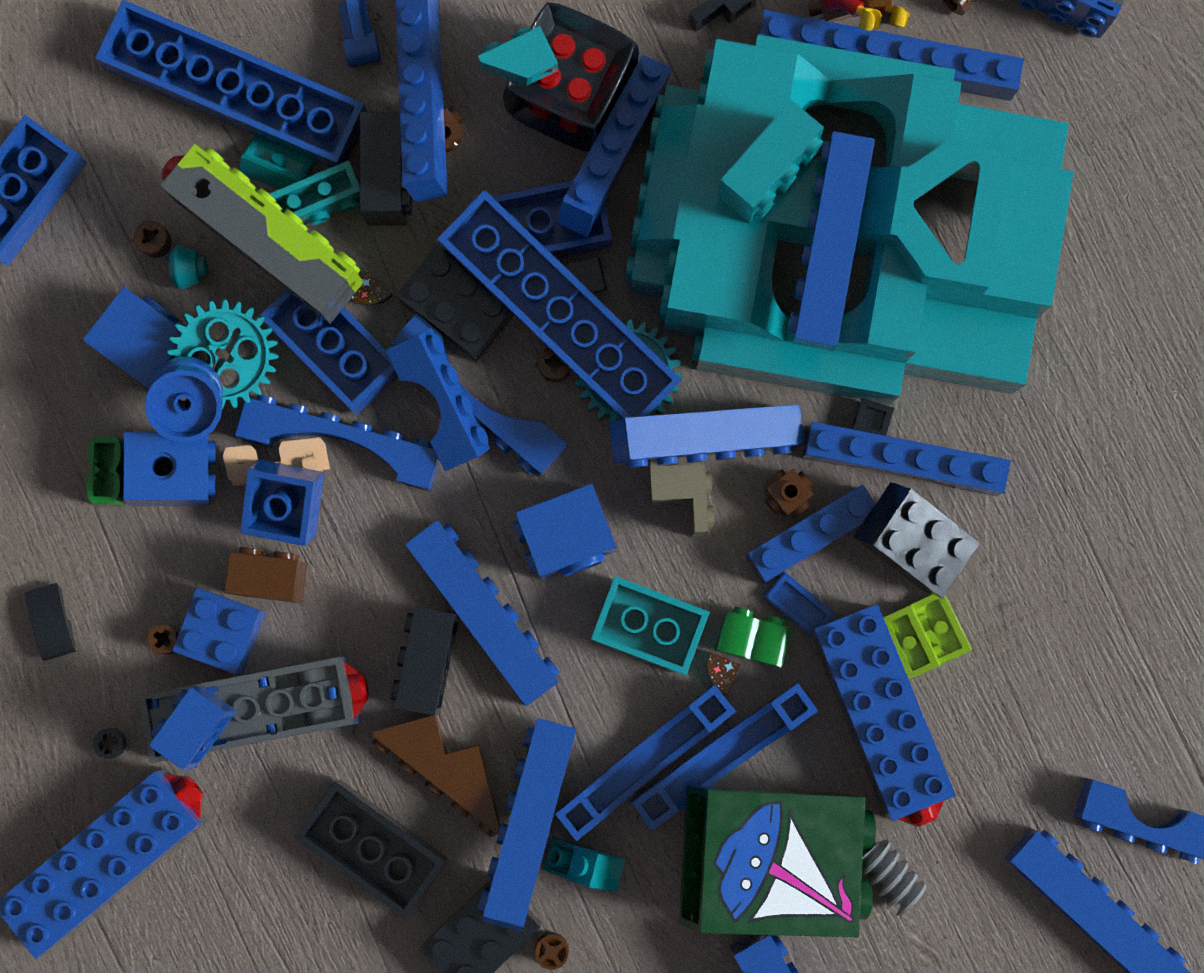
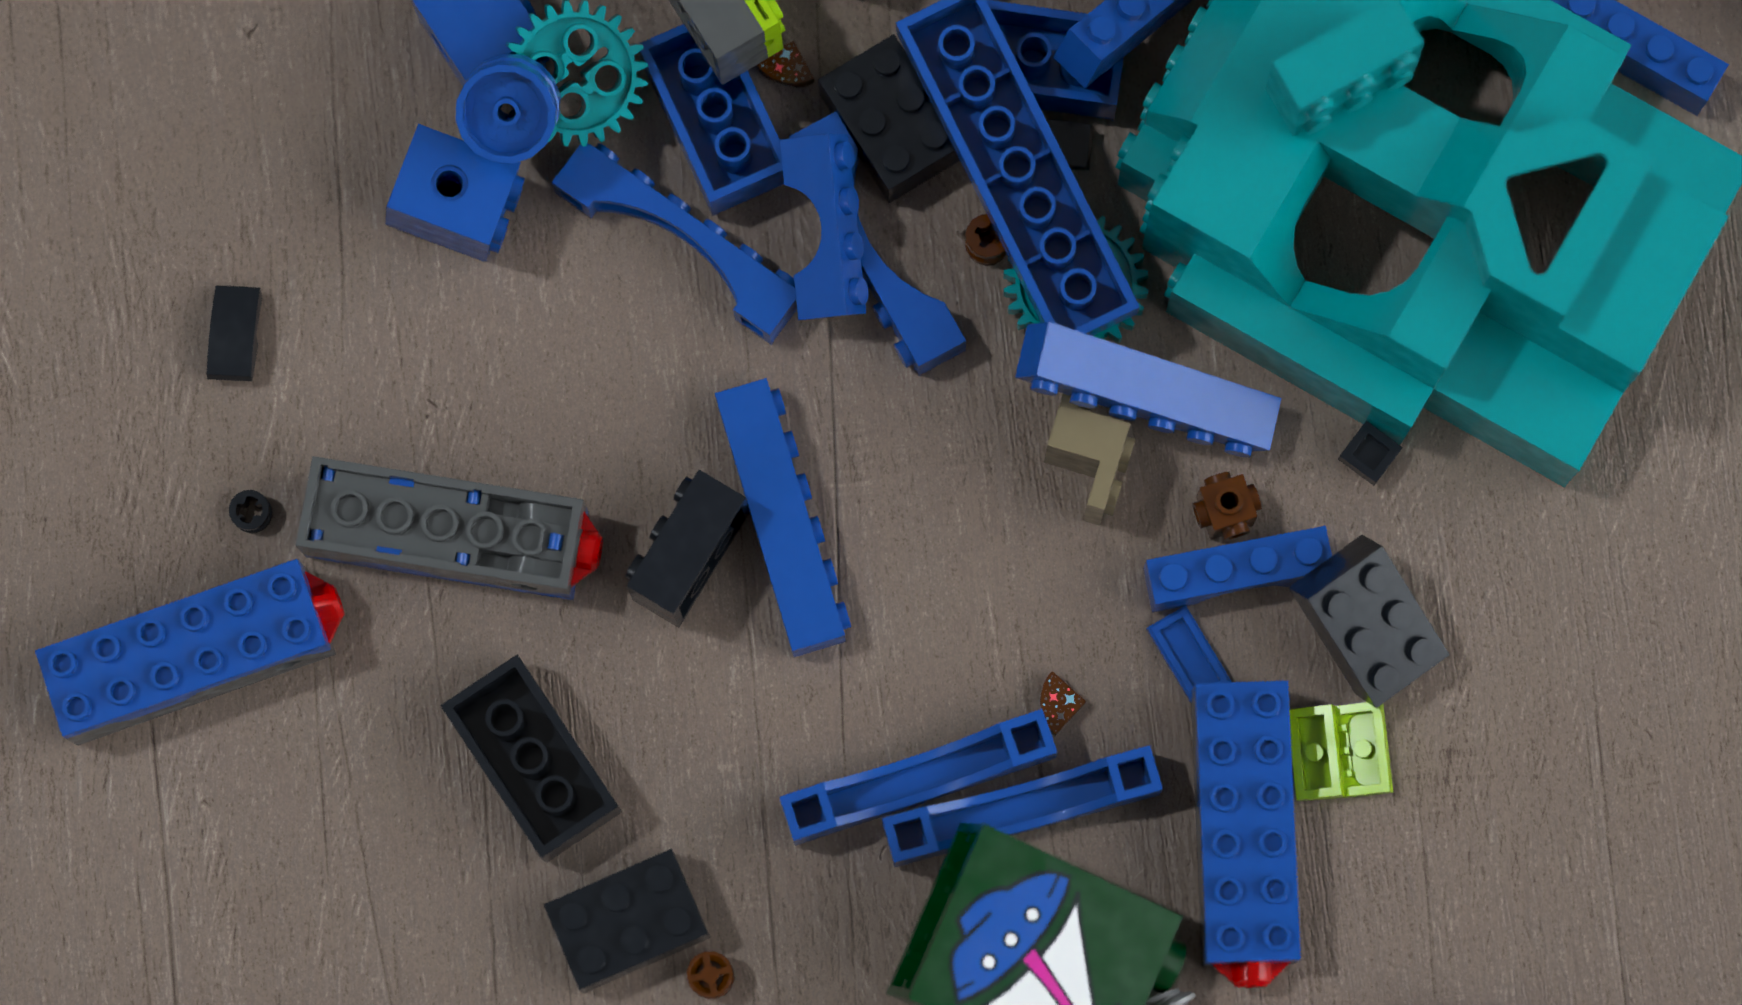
camera: 25 degrees right, 5 degrees down
(106, 478) = (373, 176): green brick -> none
(155, 640) = (355, 406): reddish brown bush -> none
(191, 727) = (367, 513): blue brick -> none
(219, 631) = (441, 419): blue brick -> none
(266, 577) = (525, 370): reddish brown brick -> none
(282, 502) = (579, 286): blue brick -> none
(291, 453) = (612, 239): light nougat piece -> none
(456, 773) = (672, 704): reddish brown slope -> none
(528, 826) = (740, 799): blue brick -> none
(565, 533) = (921, 452): blue brick -> none
(584, 865) = (793, 881): teal slope -> none
(650, 625) = (987, 608): teal brick -> none
(754, 638) = (1115, 673): green brick -> none
(833, 241) = (1388, 192): blue brick -> none
(906, 457) = (1433, 537): blue arch -> none

